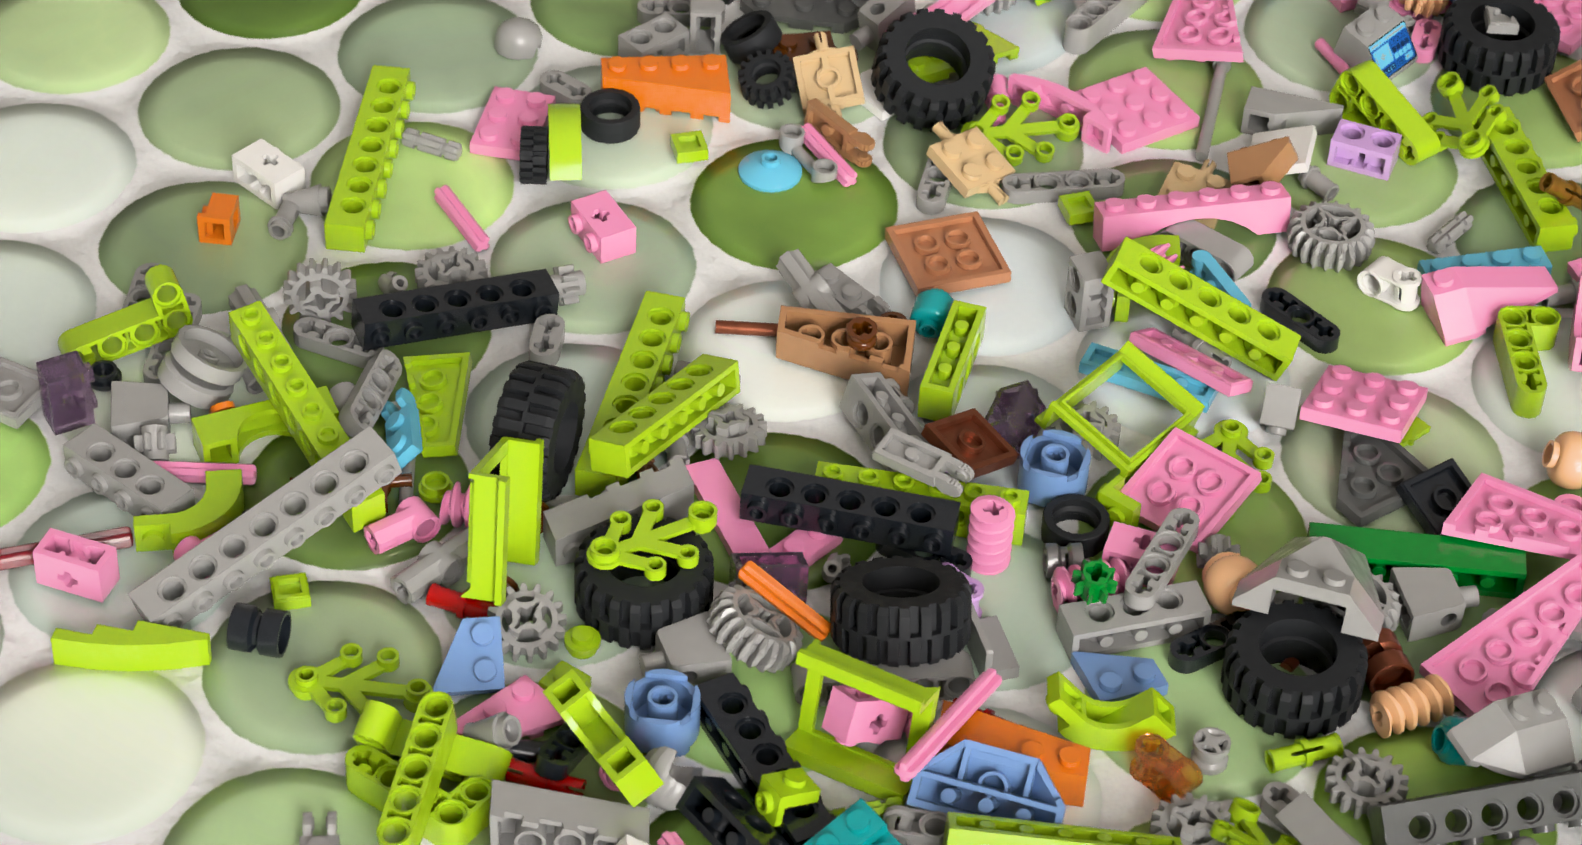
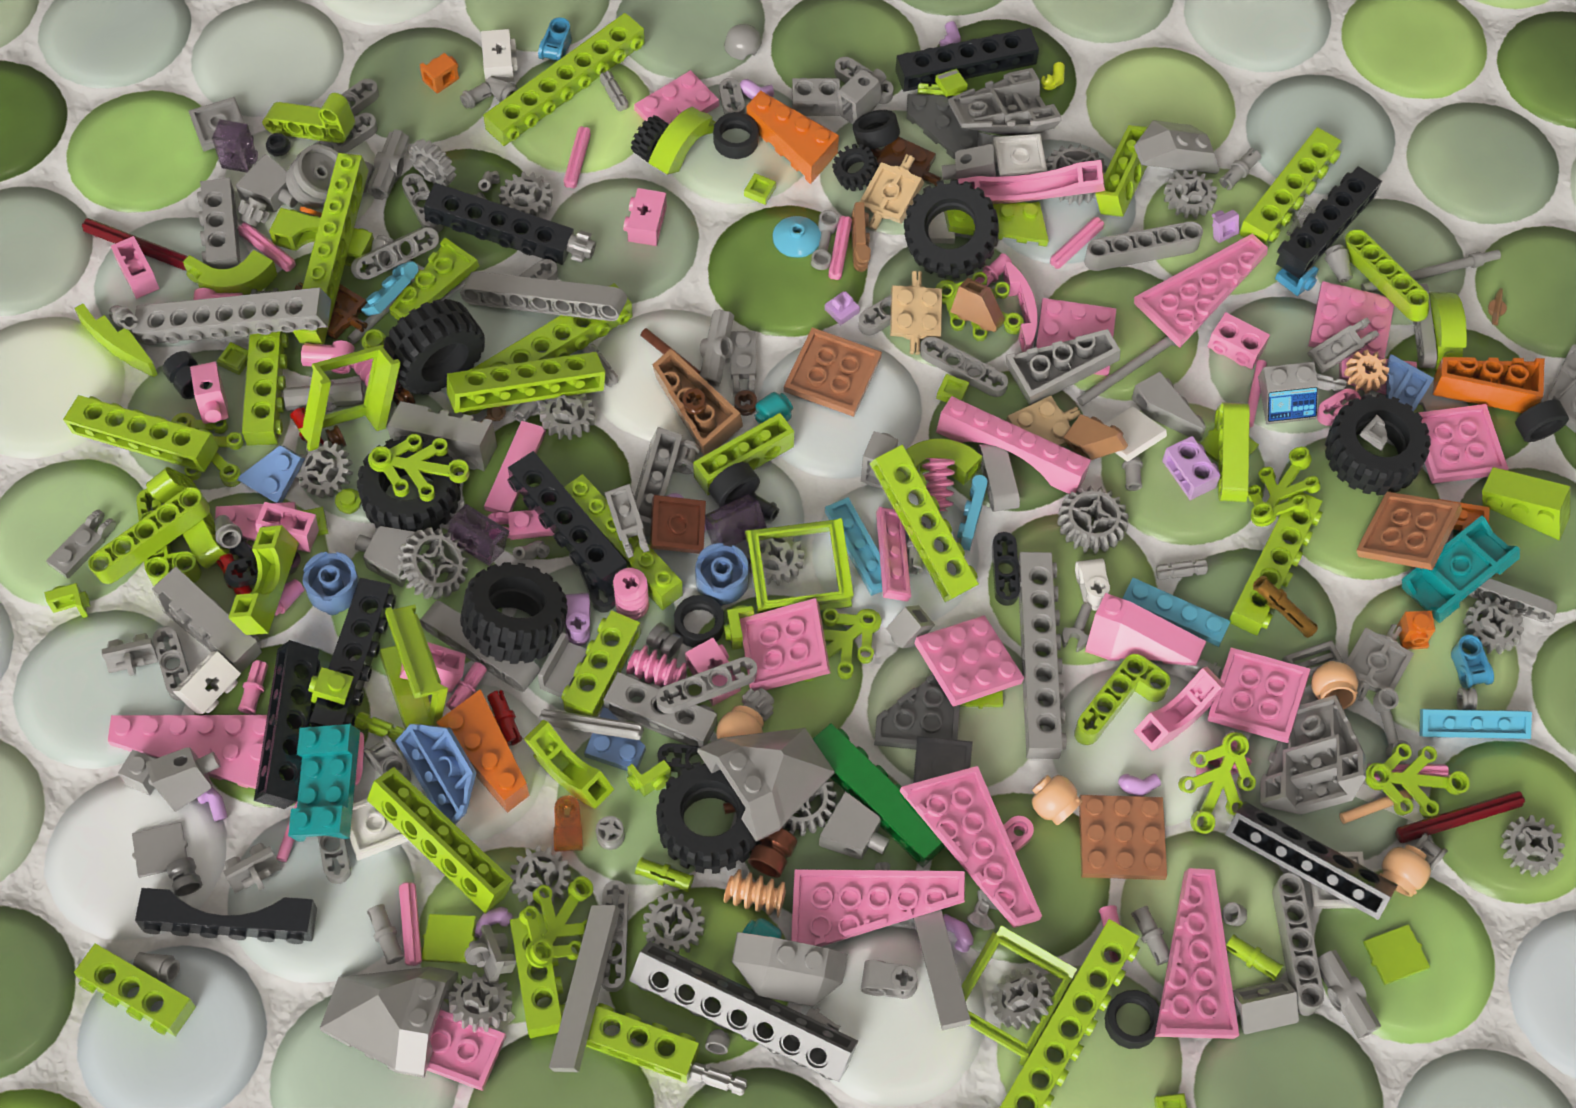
camera: 40 degrees right, 20 degrees up
(123, 614) = (123, 317): none -> light grey pin
(275, 707) = (141, 433): none -> lime brick
(320, 129) = (556, 40): none -> dark azure piece
(321, 621) = (212, 401): none -> bright pink torso
(363, 592) = (254, 428): none -> lime brick
(539, 675) = (298, 523): none -> bright pink brick
(583, 72) = (751, 89): none -> lavender arm
(595, 332) = (544, 296): none -> light grey beam
(674, 777) = (291, 625): light grey hair -> none
(784, 601) = (459, 552): orange axle -> none
(889, 200) = (842, 308): none -> lavender tile
(947, 725) = (453, 710): bright pink axle -> none
(977, 385) = (734, 483): none -> black tyre
(1025, 119) = (977, 304): none -> medium nougat slope
(1028, 617) = (616, 628): none -> lime brick
(1045, 37) = (1078, 241): none -> bright pink axle
(1086, 666) = (592, 724): none -> light grey axle
(1094, 581) = (648, 669): green gear -> none
(1156, 132) = (1062, 364): none -> light grey wedge
(1187, 688) = (650, 780): none -> lime bracket
(1283, 33) = (1240, 336): none -> bright pink brick
(1406, 355) = (1039, 742): none -> light grey brick
(1420, 332) = (1077, 630): none -> light grey bar

